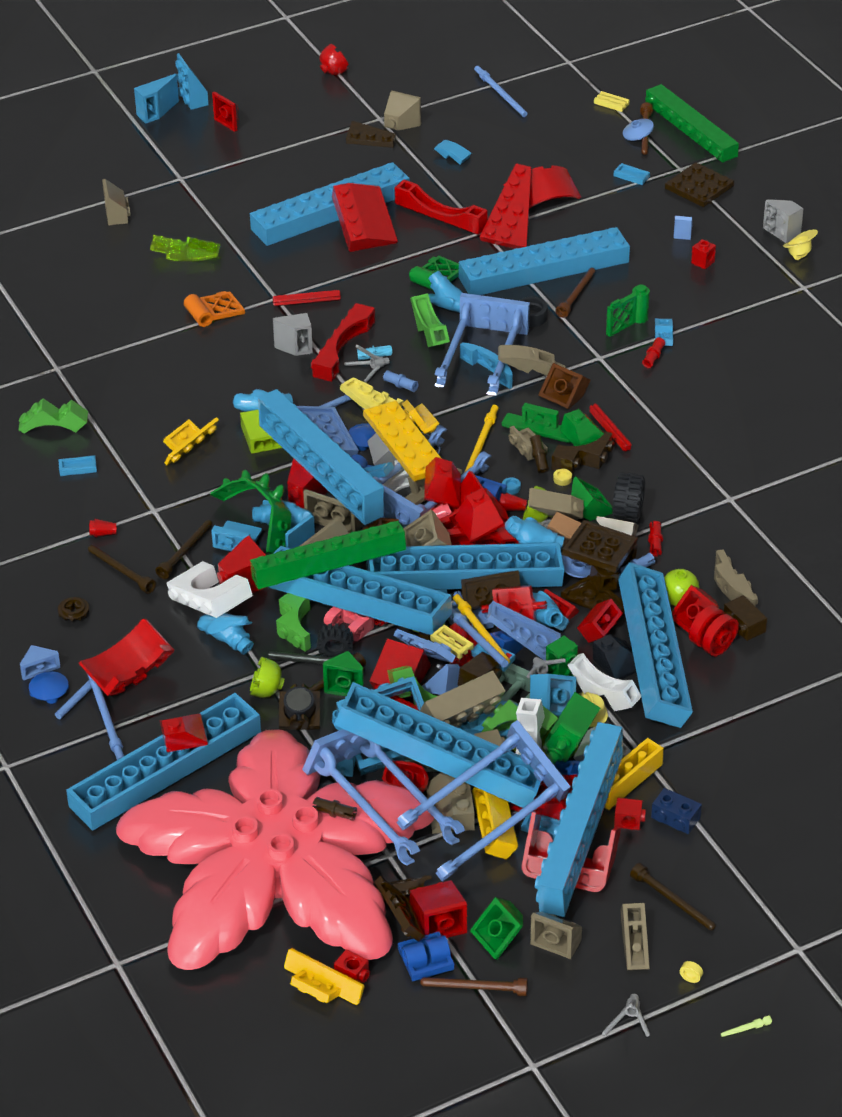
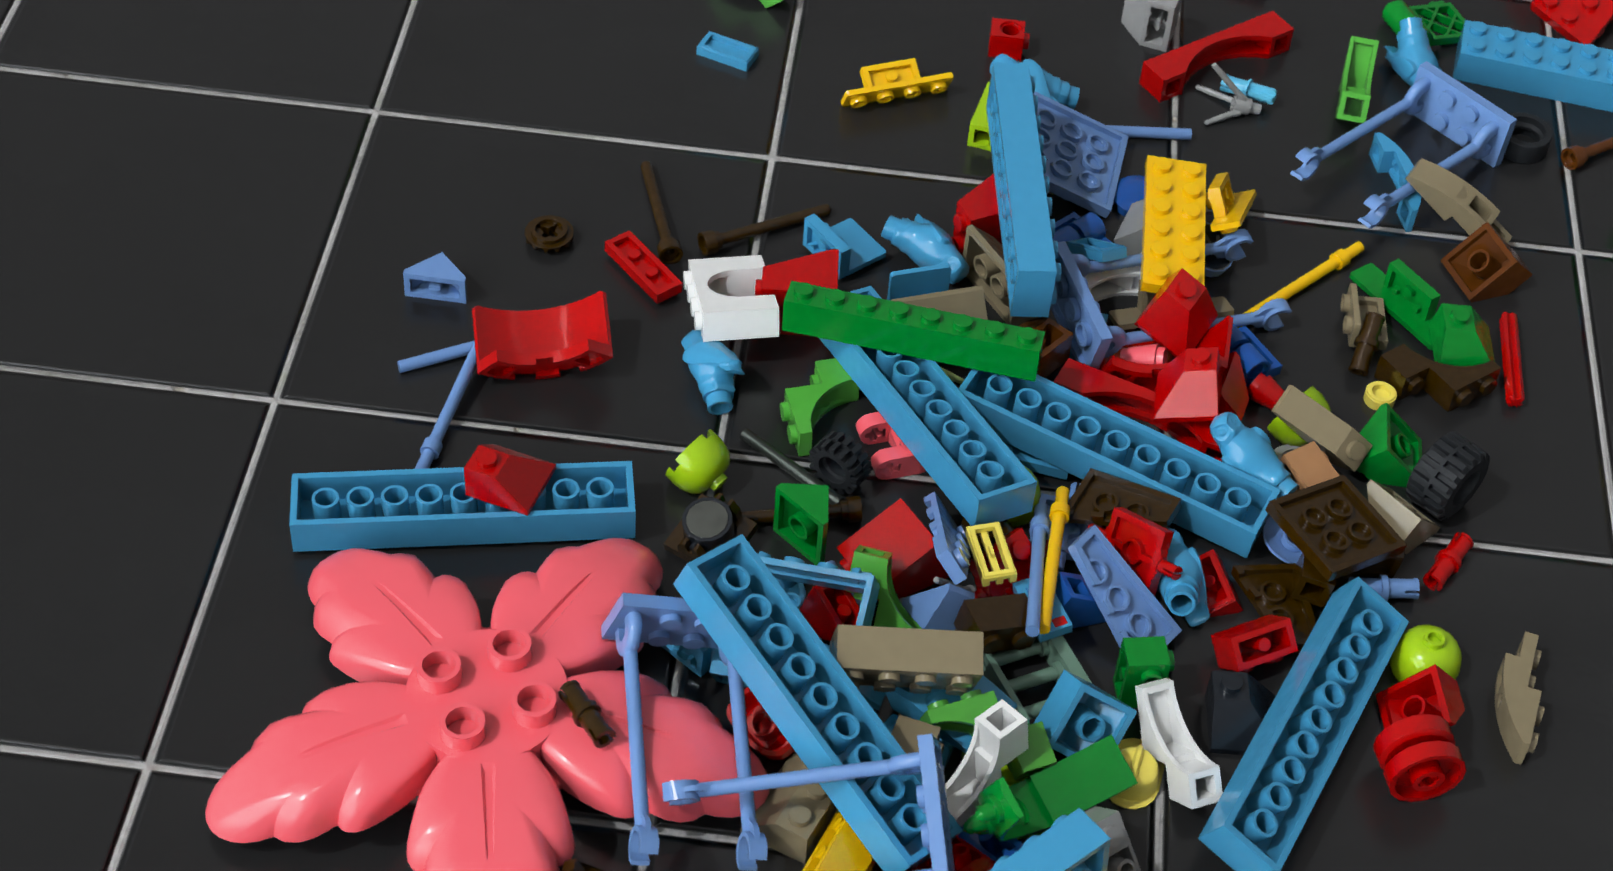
camera: 30 degrees right, 5 degrees up
(48, 686) = (424, 321): blue dish -> none
(101, 528) = (678, 144): red cone -> none
(141, 599) = (643, 266): none -> red plate
(226, 385) = (1007, 38): none -> red brick
(280, 514) = (914, 235): green piece -> none
(365, 395) = (1184, 141): light yellow wing -> none
(400, 381) = (1252, 145): medium blue pin -> none
(427, 531) = (1094, 373): dark tan slope -> none
(513, 485) = (1293, 370): dark azure tile -> none
(541, 665) = (1101, 666): light grey plant -> none
(750, 619) = (1493, 764): dark brown brick -> none

